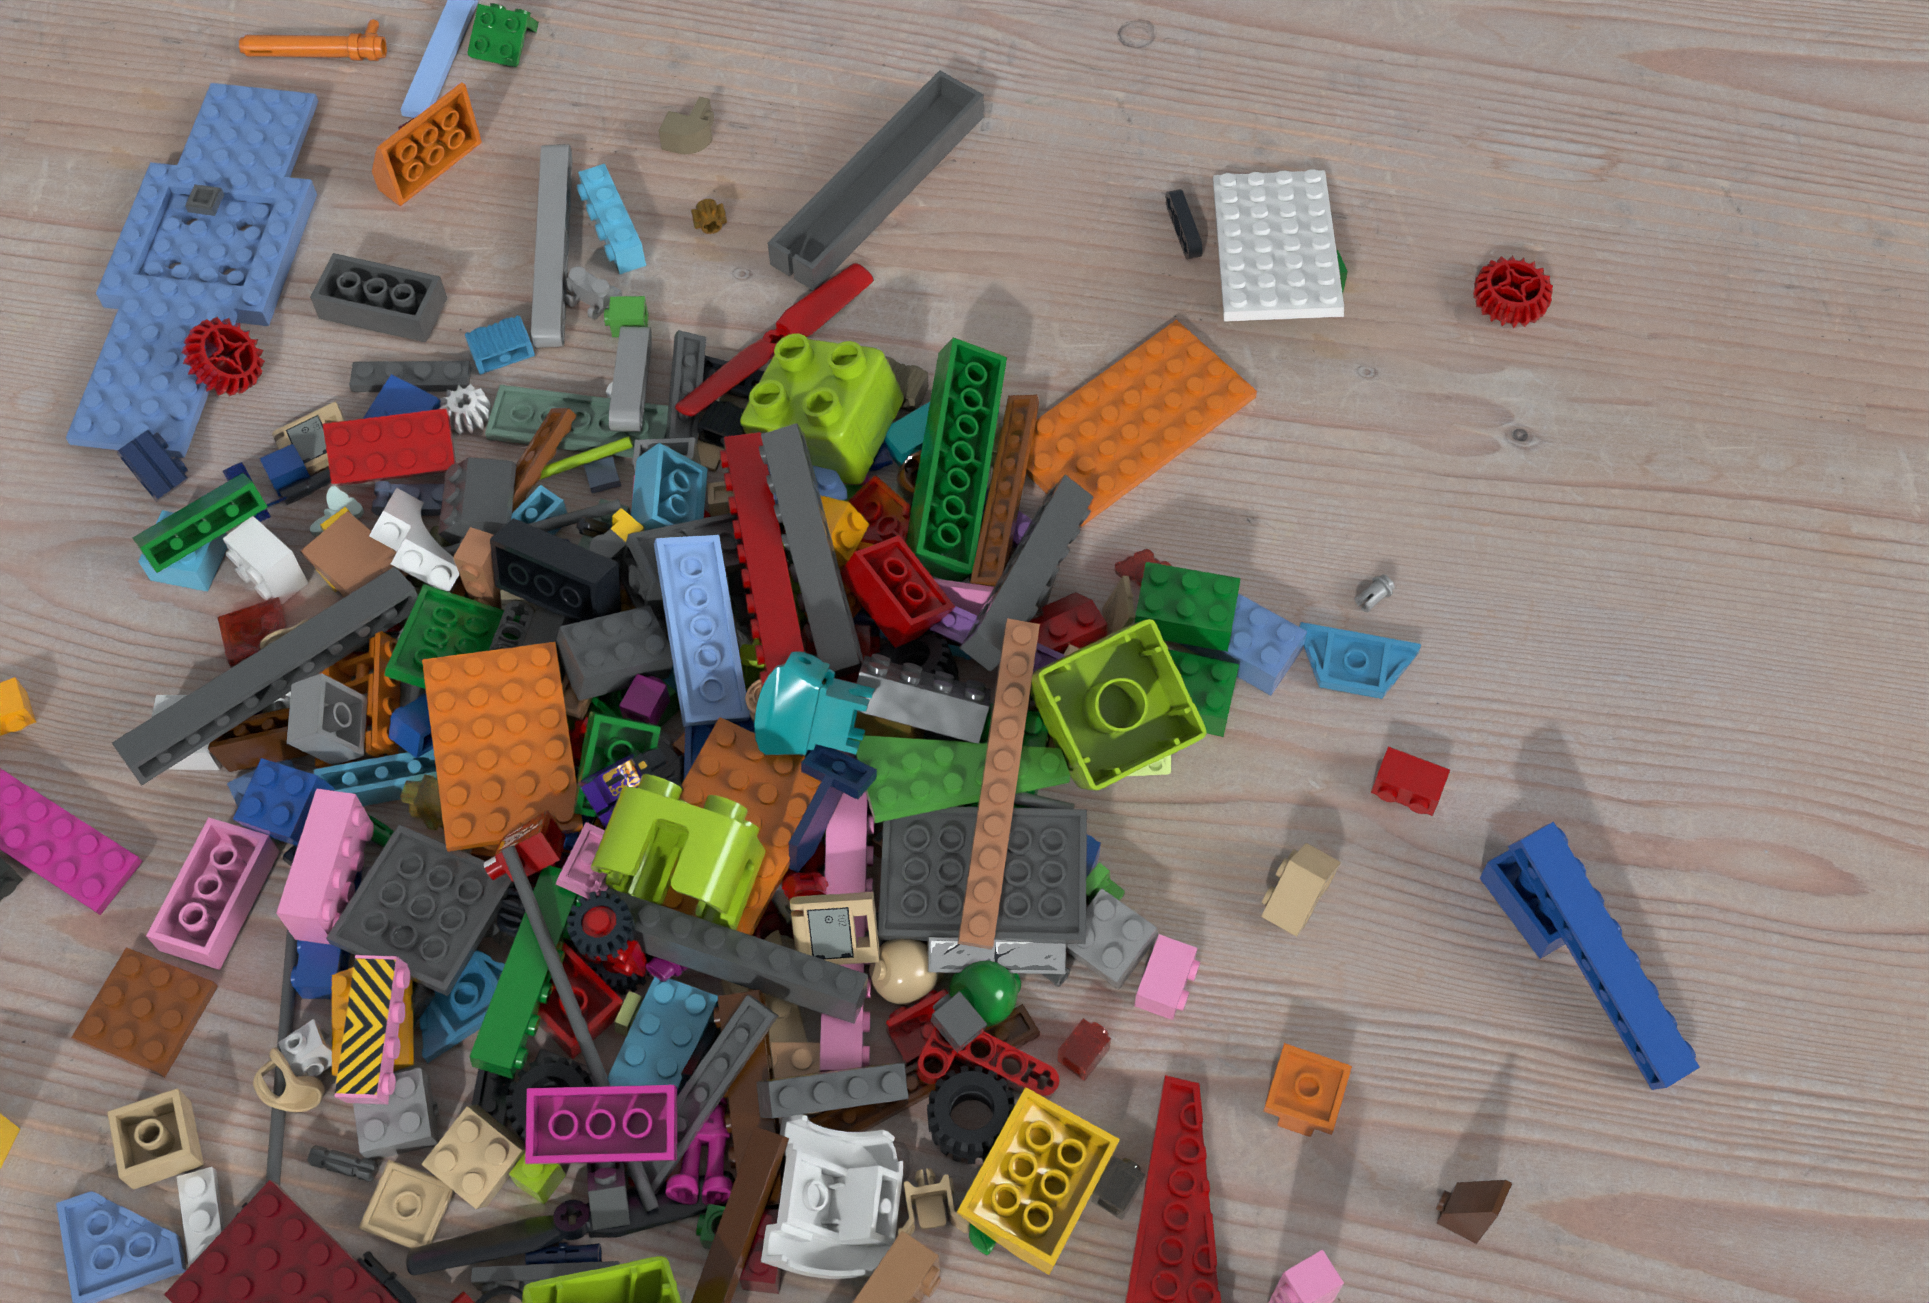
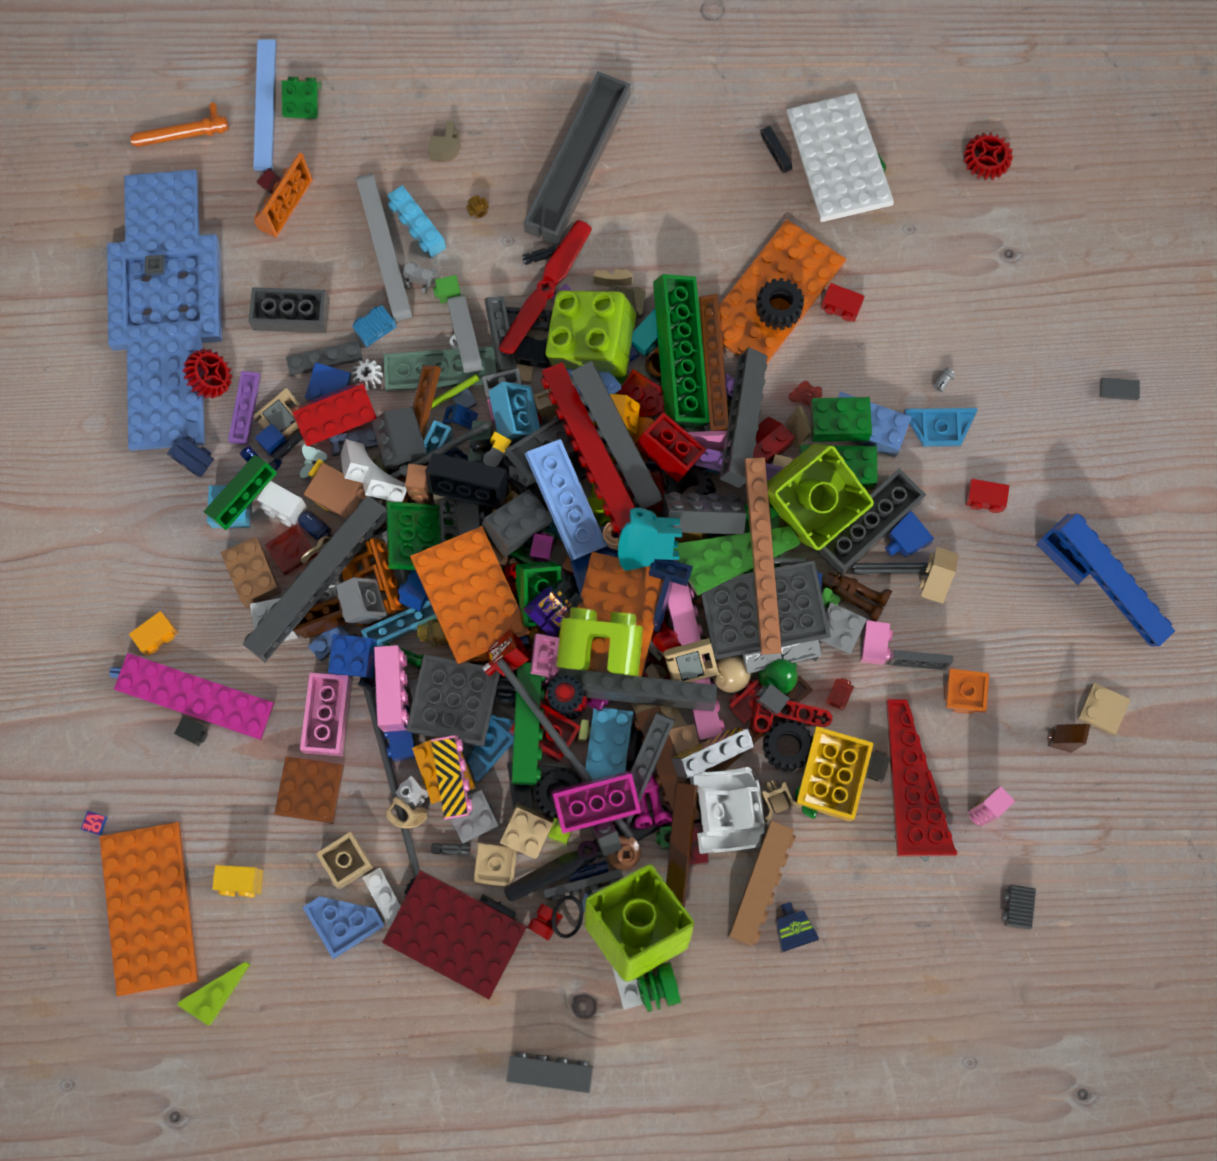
camera: 10 degrees left, 15 degrees up
(178, 647) = (250, 572): none -> medium nougat brick
(264, 418) = (244, 408): none -> medium lavender plate
(301, 600) = (314, 525): none -> dark blue head
(586, 491) = (460, 415): none -> blue bracket
(654, 1242) = (634, 854): none -> nougat piece
(779, 299) = (538, 255): none -> black axle
(893, 346) = (620, 277): none -> tan slope
(1132, 446) = (783, 290): none -> black tyre
(1137, 881) = (846, 589): none -> reddish brown piece
(1201, 780) = (891, 504): none -> dark grey brick
(1218, 863) = (889, 568): none -> dark grey axle
(1235, 449) = (842, 302): none -> red brick
(1236, 1019) = (920, 660): none -> dark grey tile
(1263, 819) = (908, 536): none -> blue torso
(1550, 1179) = (1104, 709): none -> tan plate
(1667, 665) = (1120, 389): none -> dark grey tile

